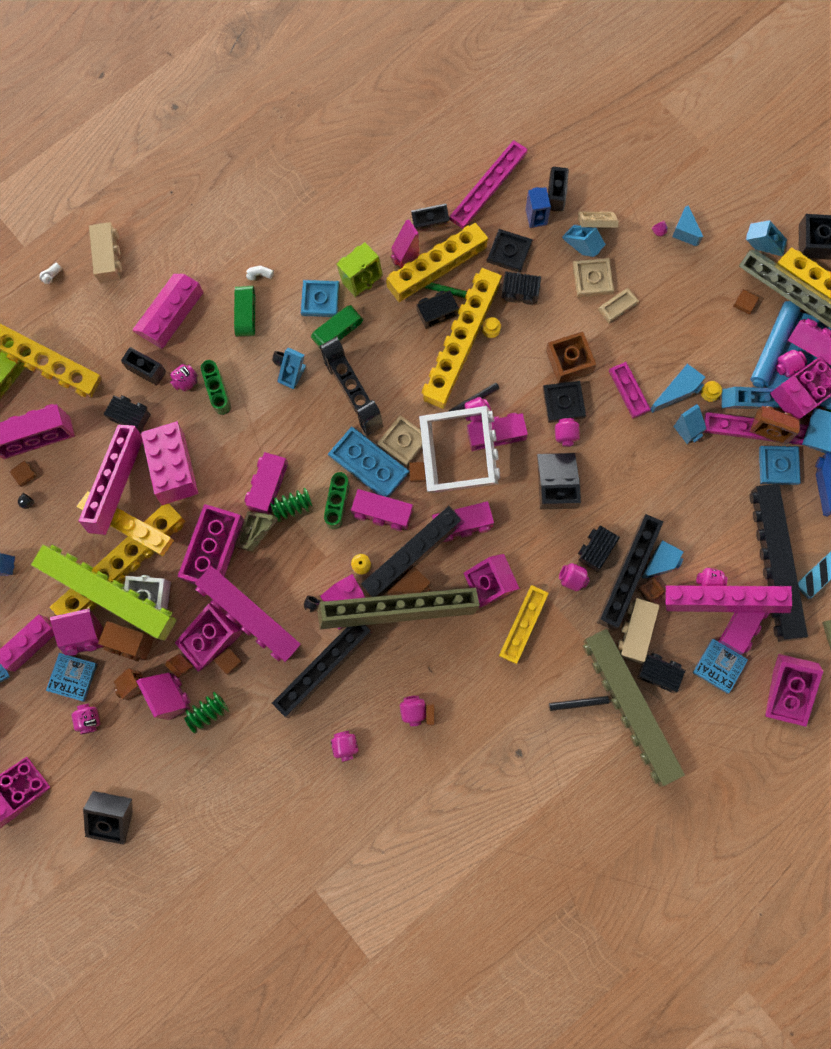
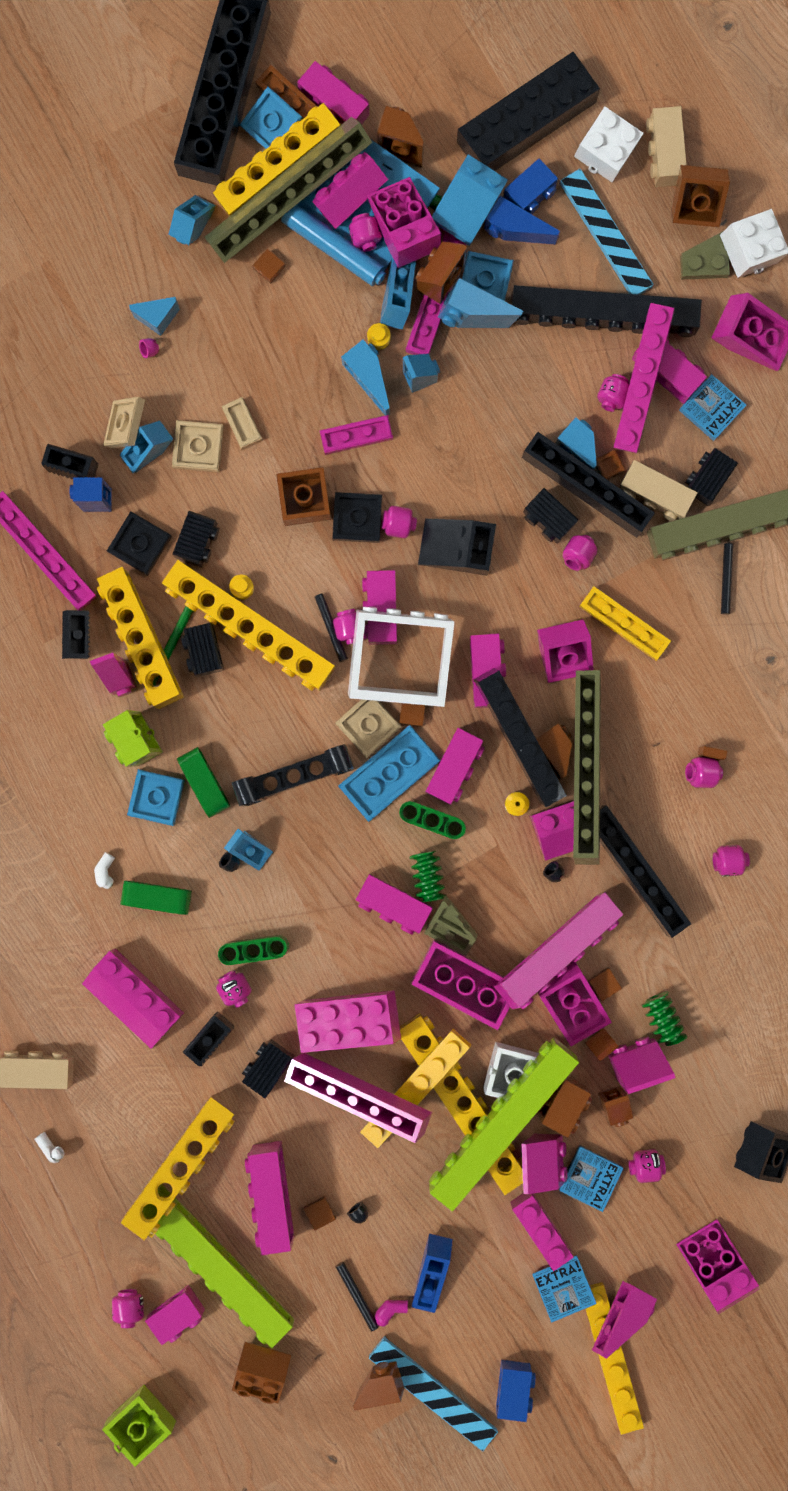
camera: 80 degrees left, 10 degrees up
(751, 452) = (475, 308): none -> dark azure slope

